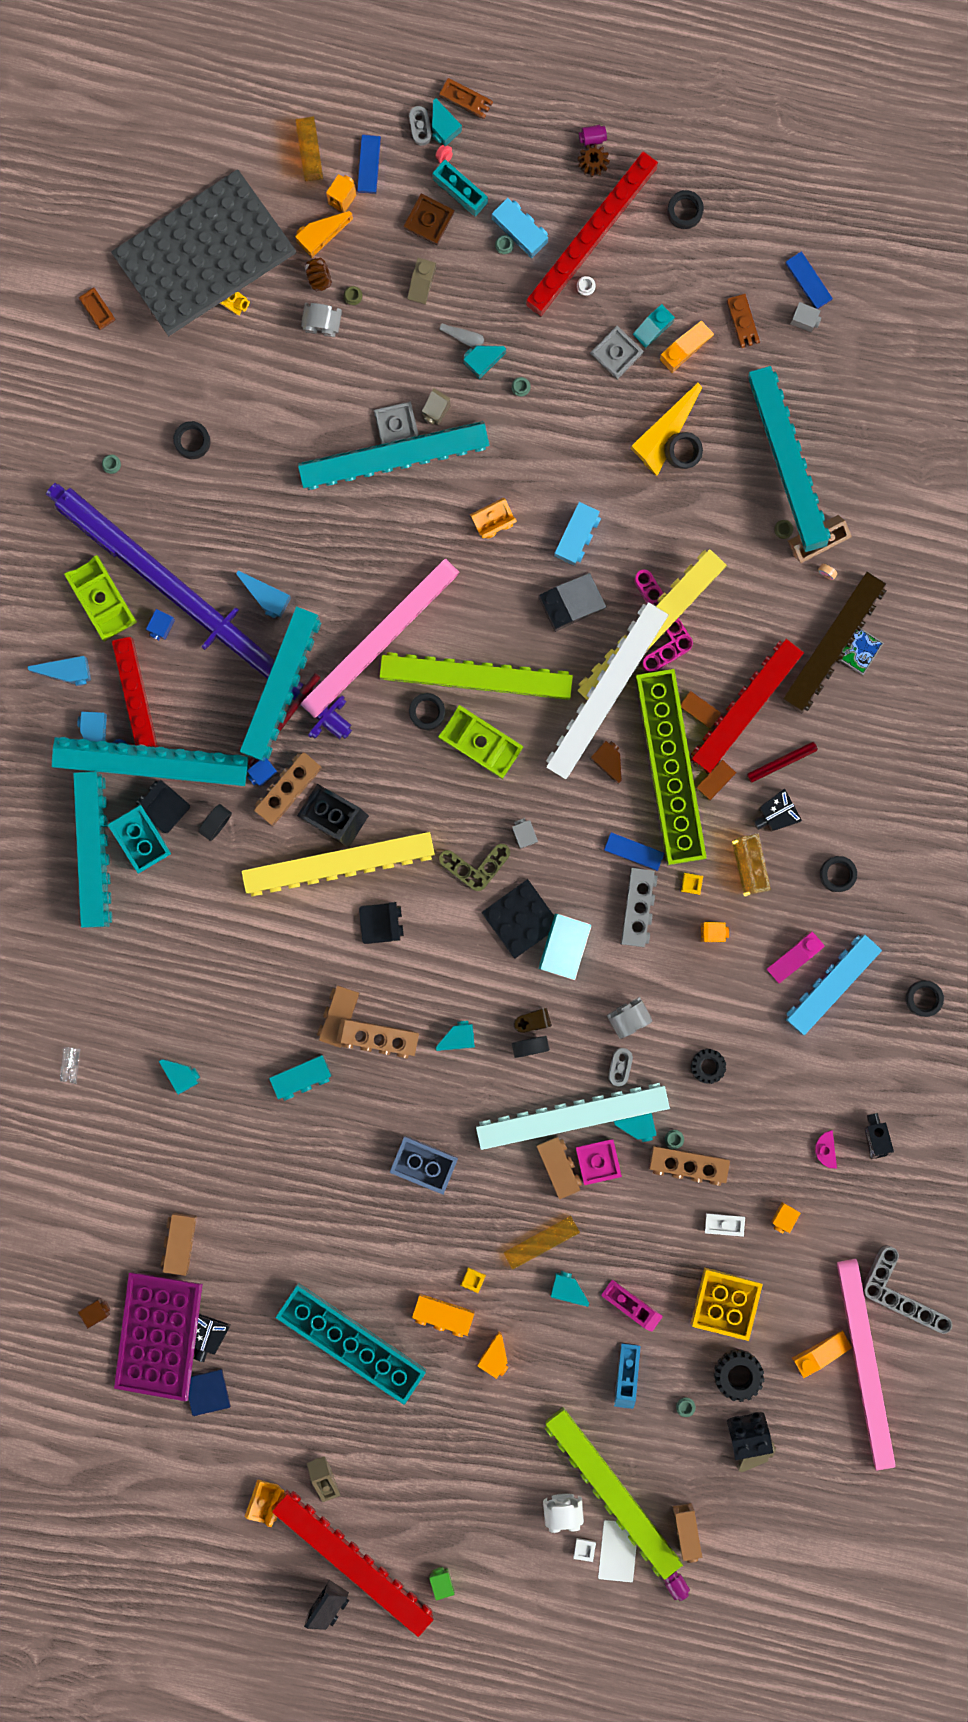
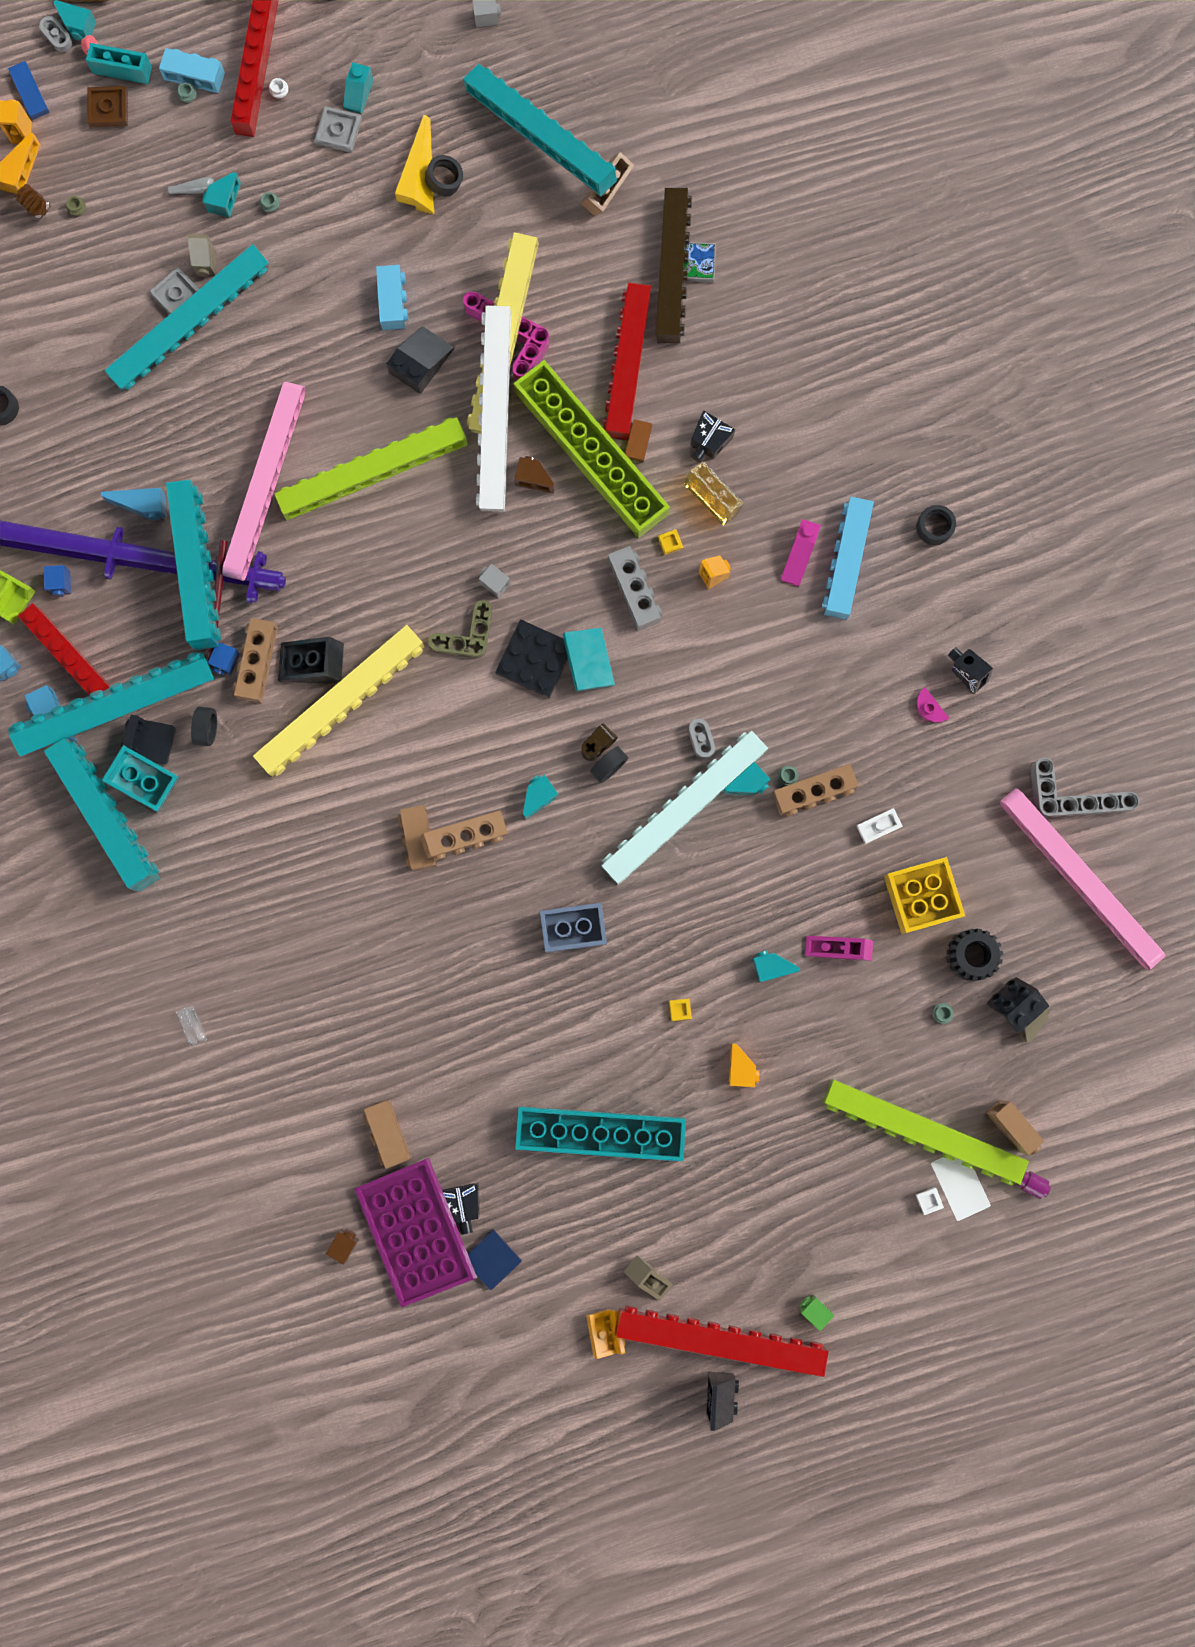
camera: 30 degrees left, 5 degrees down
(180, 1075) = (301, 976): teal slope -> none
(301, 1078) = (414, 914): teal brick -> none
(321, 318) = (56, 236): light grey brick -> none
(380, 923) = (409, 732): black bracket -> none
(421, 281) = (129, 159): dark tan slope -> none
(430, 697) = (344, 508): black tyre -> none
(443, 1315) = (671, 1058): light orange brick -> none
(493, 518) = (307, 324): light orange bracket -> none
(499, 750) = (428, 525): lime piece -> none
(541, 1242) = (722, 938): clear yellow tile -> none
(559, 1167) = (698, 859): medium nougat brick -> none
(563, 1513) = (890, 1177): white brick -> none
(598, 1162) = (731, 835): dark pink plate -> none
(627, 1376) = (873, 1016): dark azure slope -> none
(629, 1018) = (684, 687): light grey brick -> none
(634, 851) = (601, 542): blue tile -> none
(686, 346) = (394, 92): light orange slope -> none
(700, 709) = (589, 388): dark orange tile -> none
(720, 1066) = (789, 684): black tyre -> none
(743, 320) = (433, 44): dark orange hinge -> none
(782, 762) = (687, 393): dark red axle -> none
(783, 529) = (571, 196): olive plate -> none
(785, 1218) = (930, 788): light orange brick -> none
(821, 1354) = (1036, 893): light orange slope -> none
(827, 571) = (630, 210): light nougat tile -> none
(852, 869) = (799, 446): black tyre -> none

